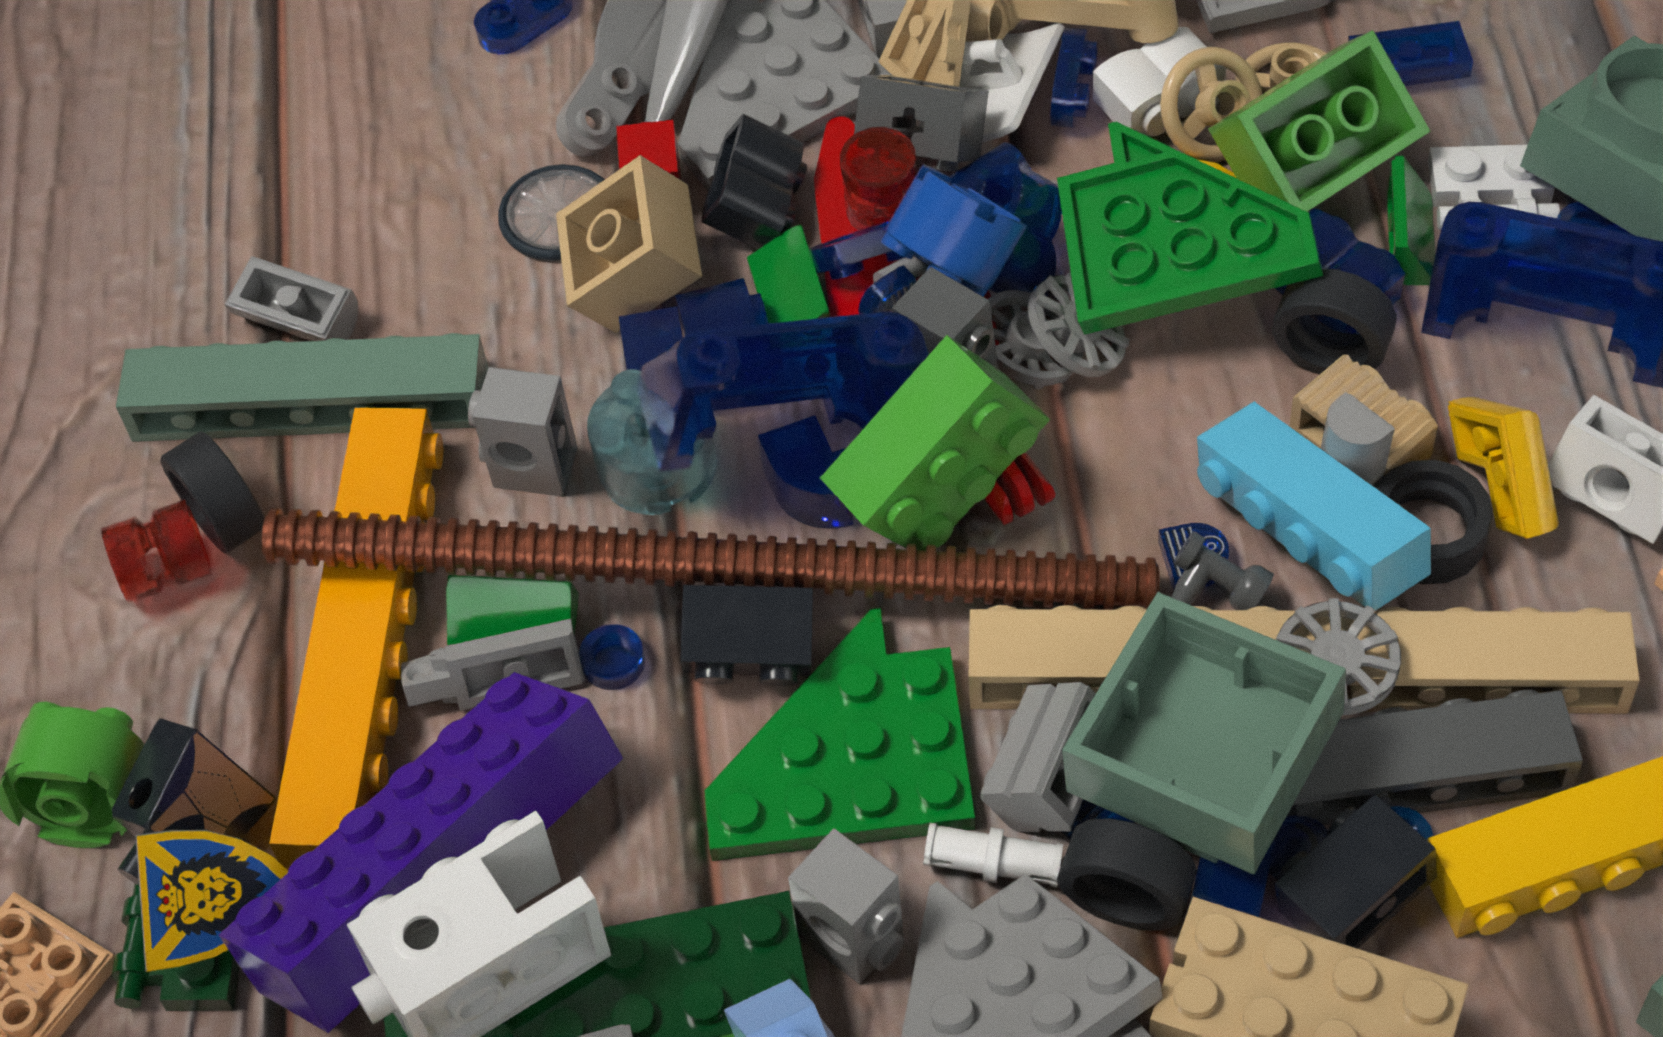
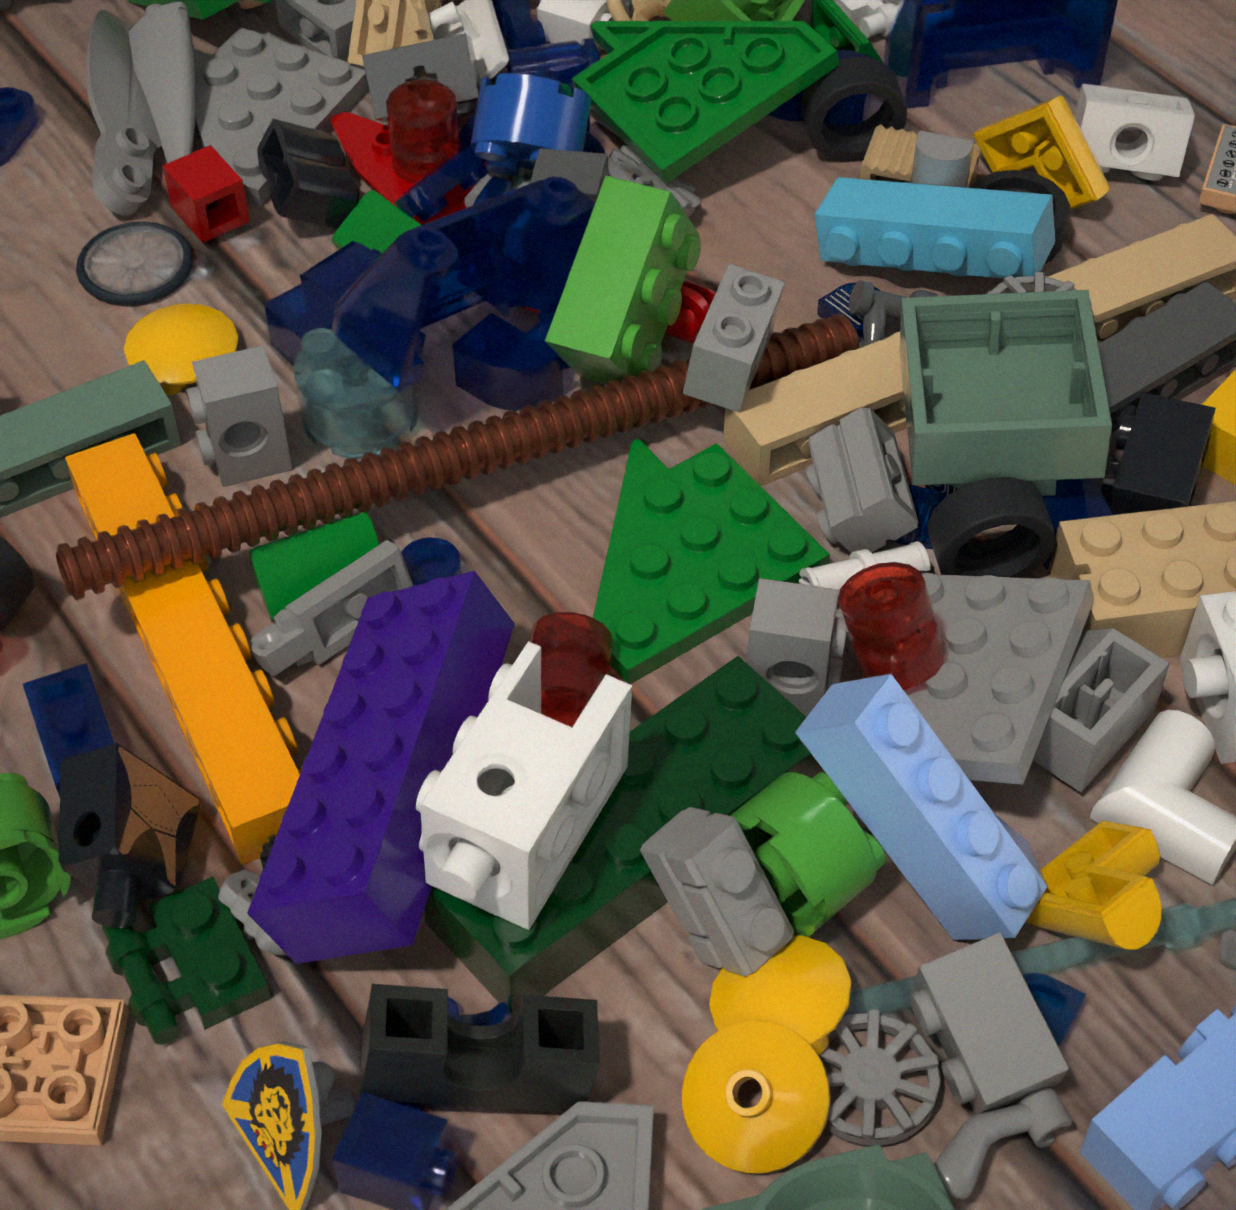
camera: 35 degrees left, 5 degrees down
(193, 891) = (200, 888): shield -> none
(221, 678) = (67, 716): none -> clear blue plate
(535, 327) = (175, 338): none -> yellow dish
(628, 244) = (235, 247): tan brick -> none
(651, 820) = (573, 662): none -> clear red wheel
(746, 633) = (547, 492): black brick -> none
(923, 936) = (892, 623): none -> clear red wheel
(1000, 551) = (733, 337): none -> light grey brick
(1064, 143) = (562, 58): none -> clear blue piece

